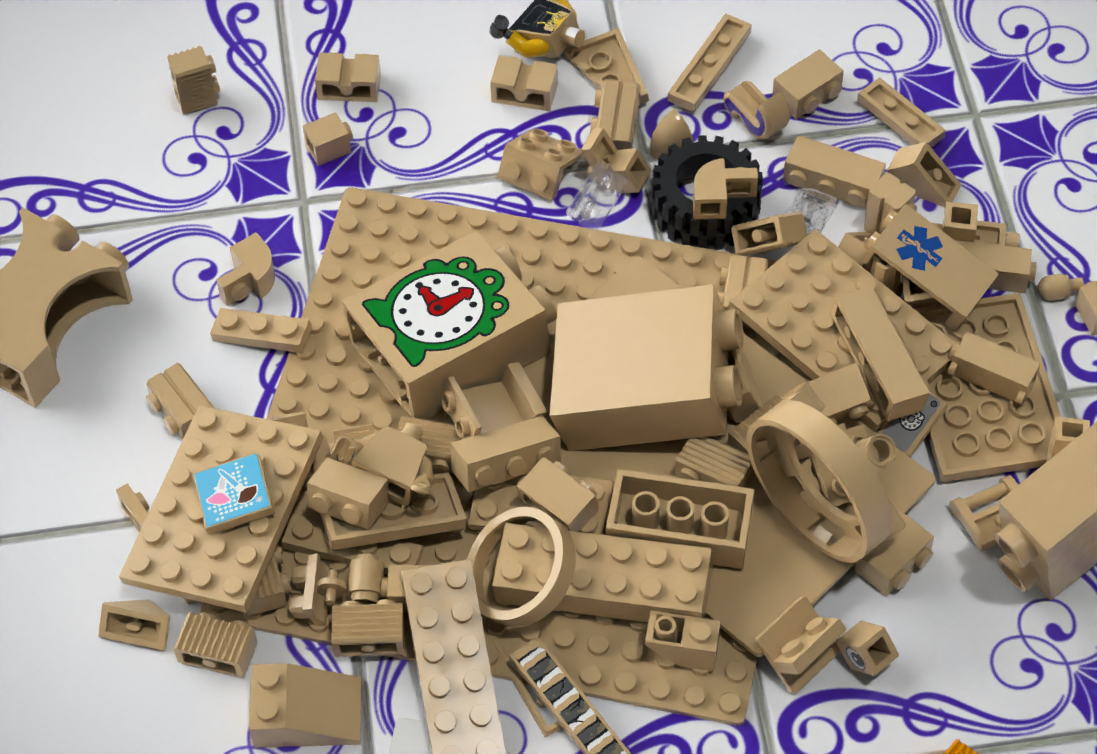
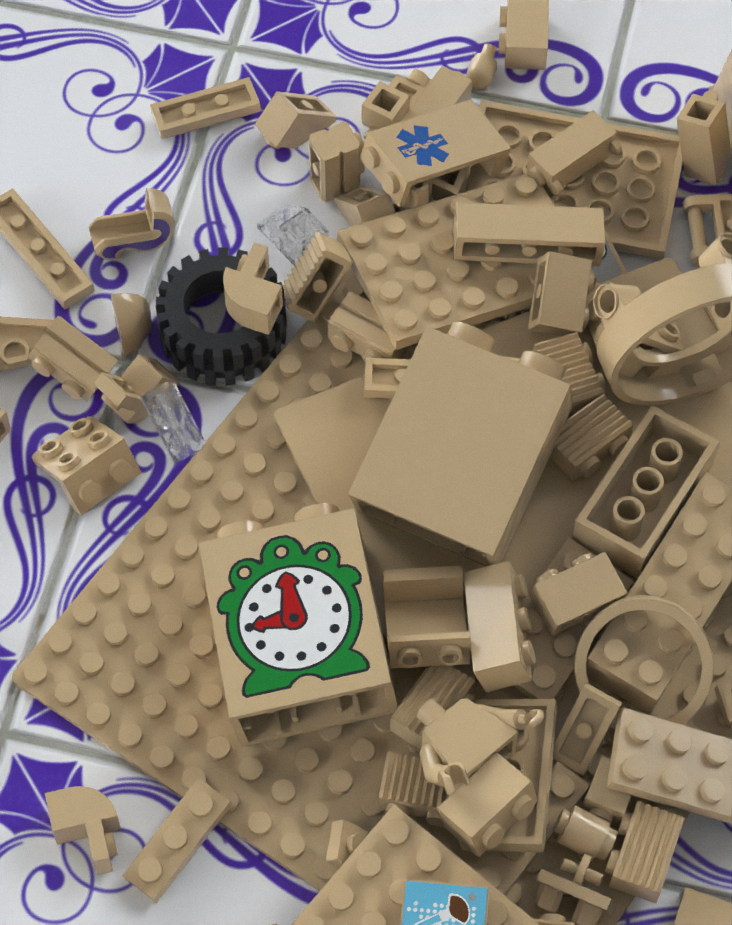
camera: 70 degrees left, 5 degrees up
(452, 546) = (585, 729): none -> tan plate
(809, 83) = (122, 169): tan brick -> none
(832, 170) = (250, 194): tan brick -> none

